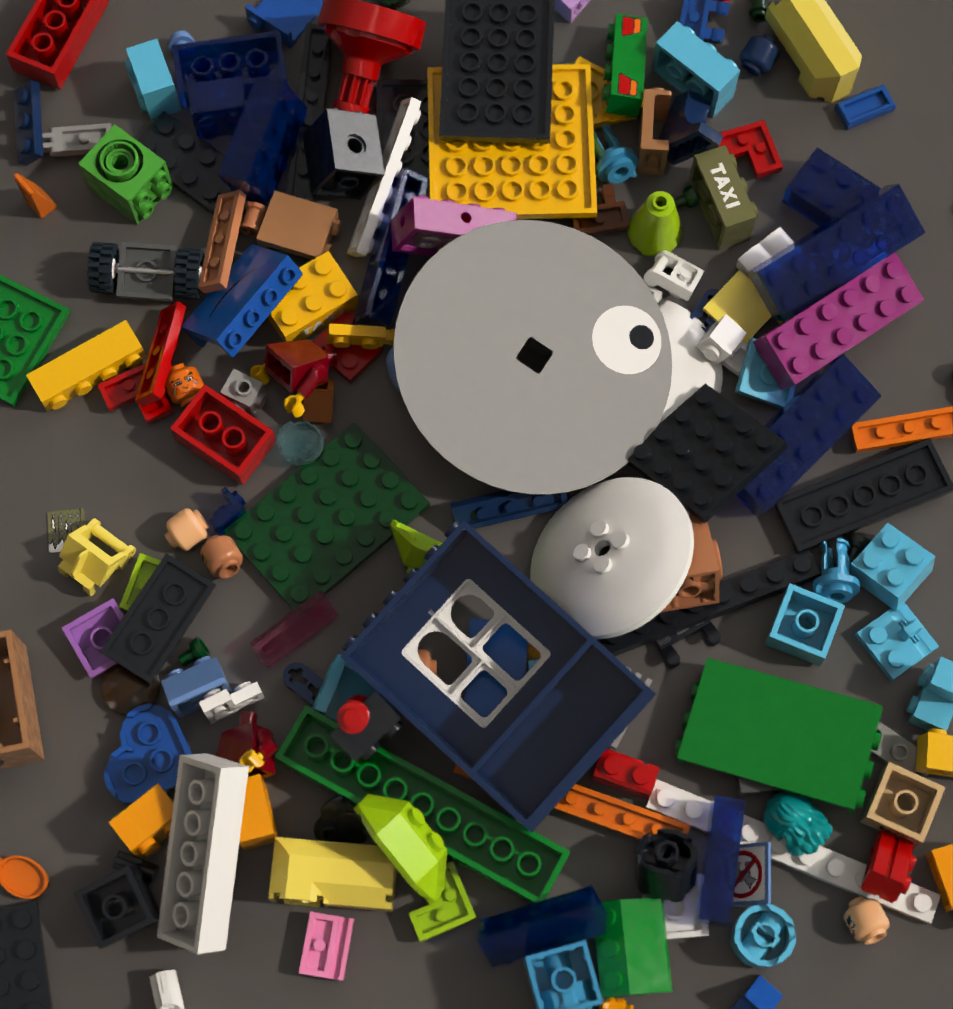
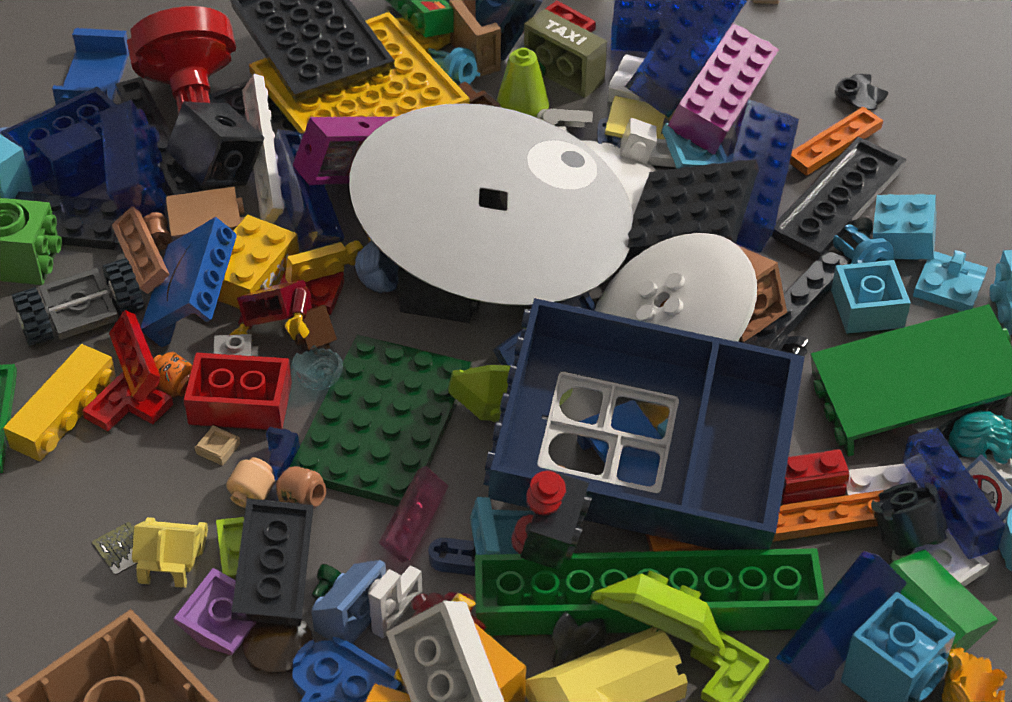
camera: 30 degrees left, 25 degrees down
(186, 473) = (217, 445): none -> tan tile

